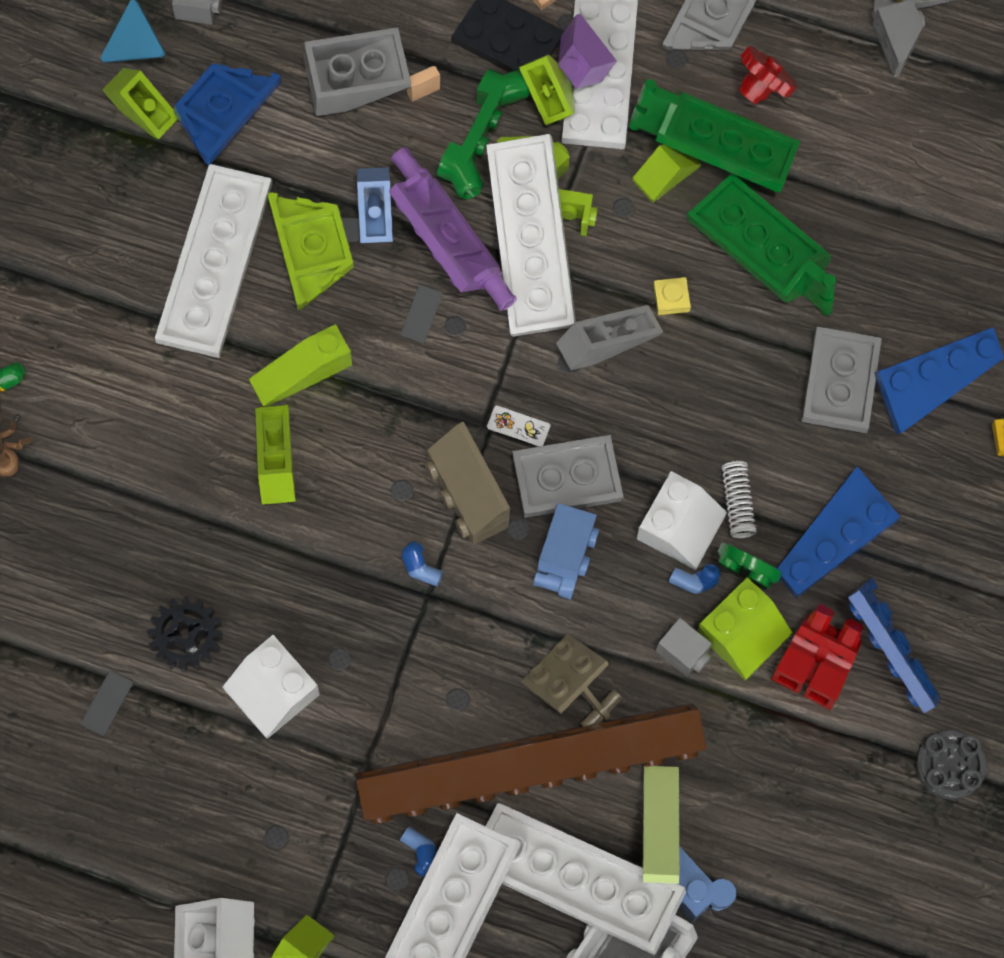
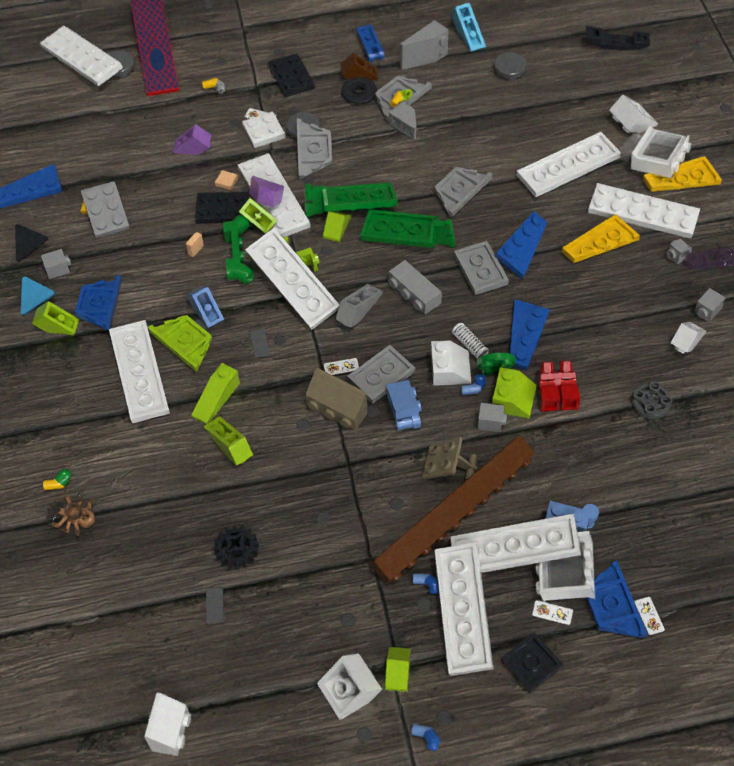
camera: 25 degrees left, 15 degrees down
(271, 687) = (298, 546): white slope -> none
(355, 69) = (156, 253): light grey slope -> none
(416, 565) = (335, 453): arm -> none
(447, 232) = (255, 301): medium lavender plate -> none
(661, 824) = (539, 497): yellowish green tile -> none
(671, 296) = (376, 274): light yellow plate -> none
(712, 356) = (415, 287): none -> light grey brick
(764, 76) = (356, 163): red plant -> none
(894, 644) = (582, 359): blue wing -> none
(905, 213) = (459, 188): none -> light grey wing

